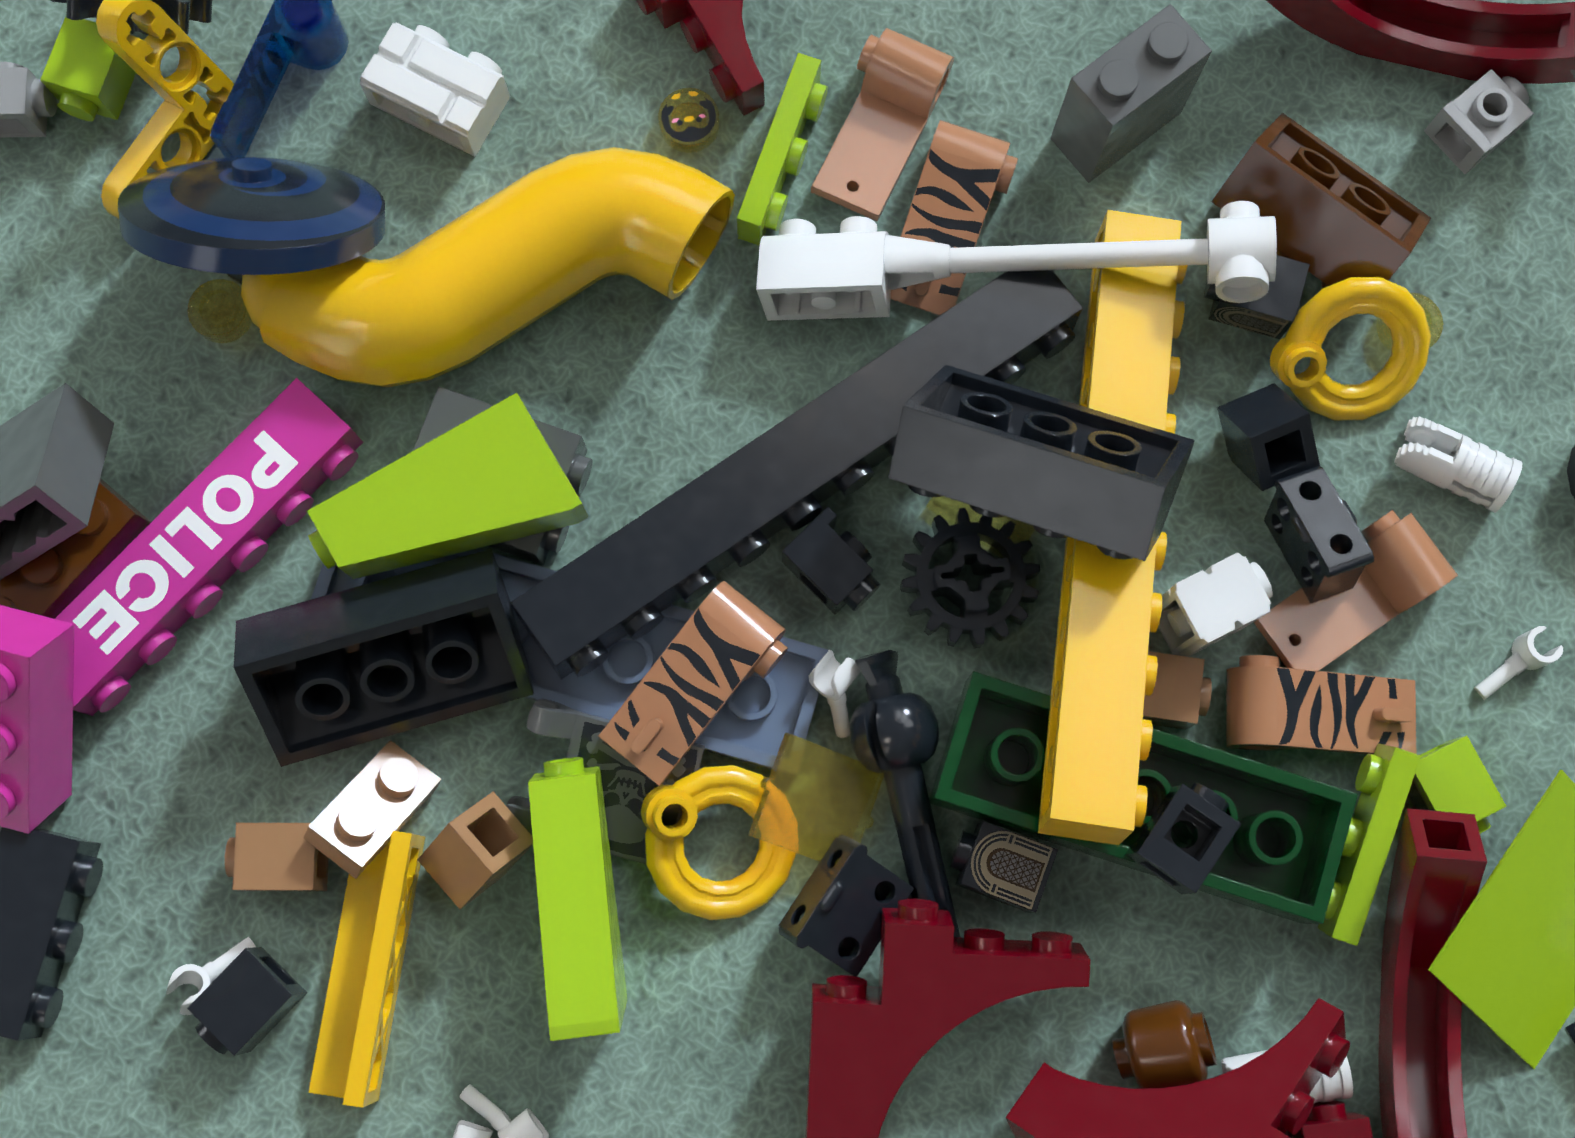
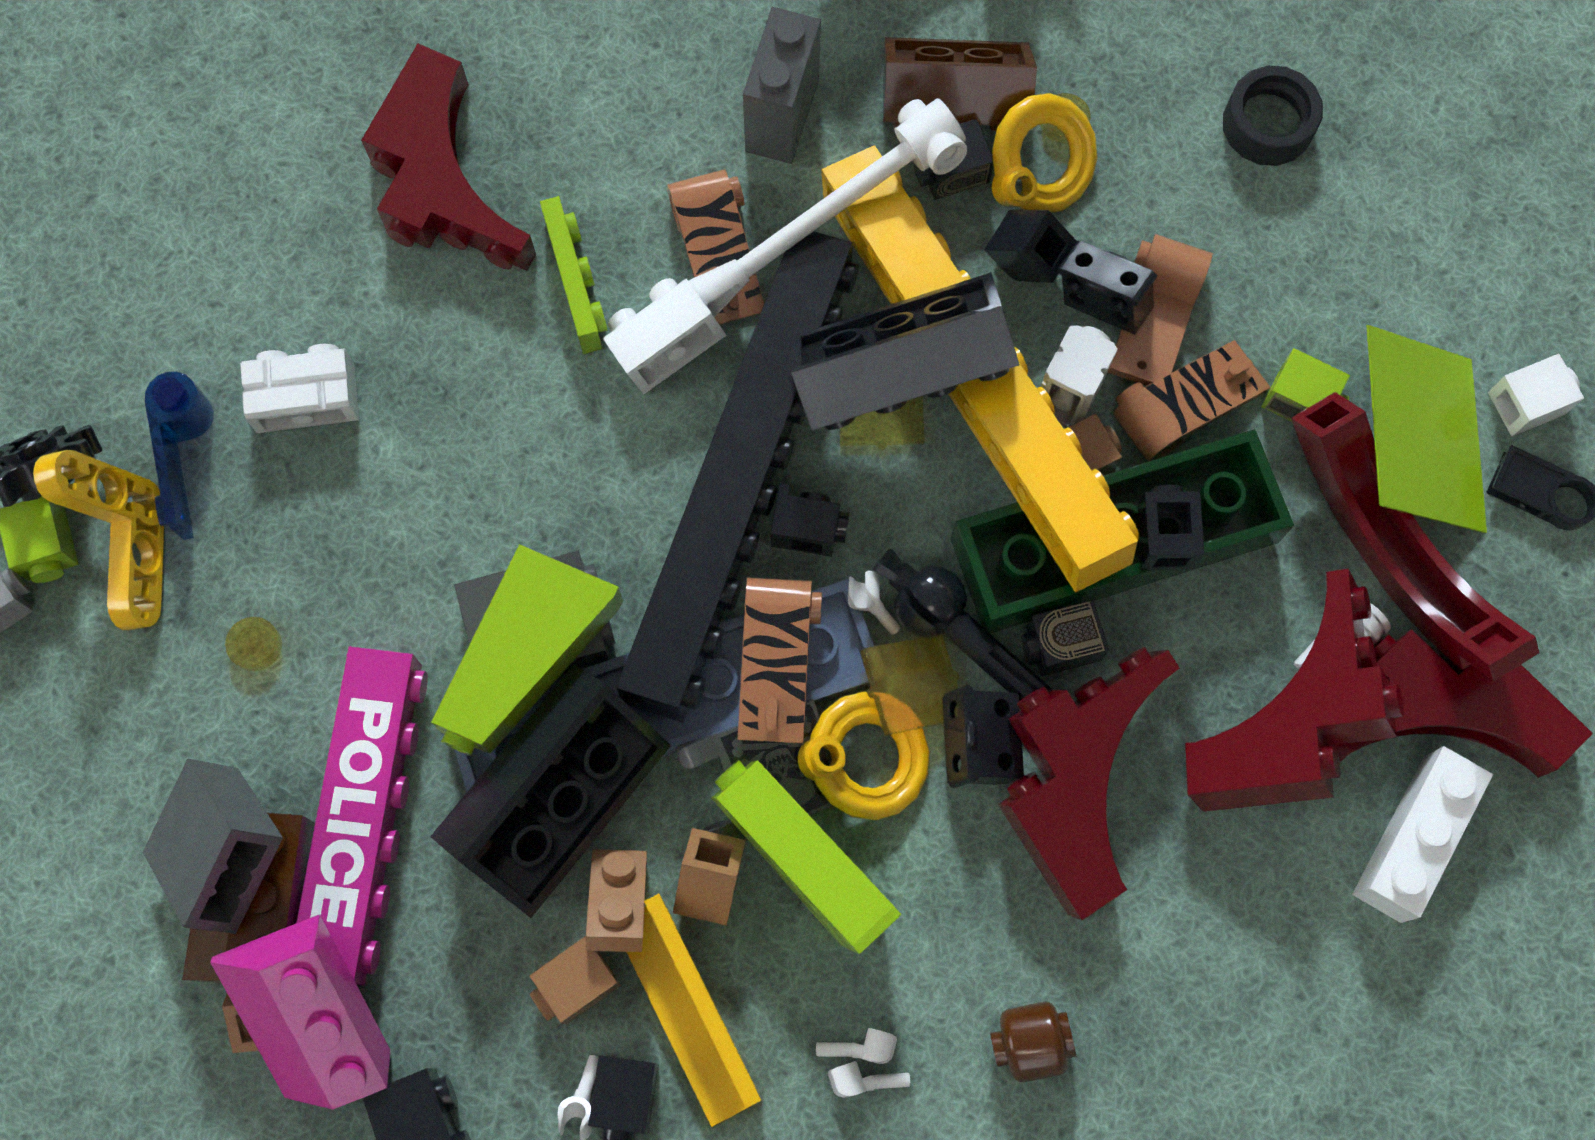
camera: 35 degrees left, 5 degrees down
(251, 216) = (240, 553): dish -> none
(495, 268) = (424, 497): yellow animal -> none
(688, 120) = (492, 297): clear yellow tile -> none
(884, 123) = (627, 212): nougat door -> none
(967, 550) = (920, 485): black gear -> none
(1164, 1046) = (1251, 678): reddish brown head -> none
(1384, 787) = (1266, 413): lime plate -> none
(1458, 463) = (1161, 183): white hinge -> none
(1523, 657) = (1290, 279): white hand -> none

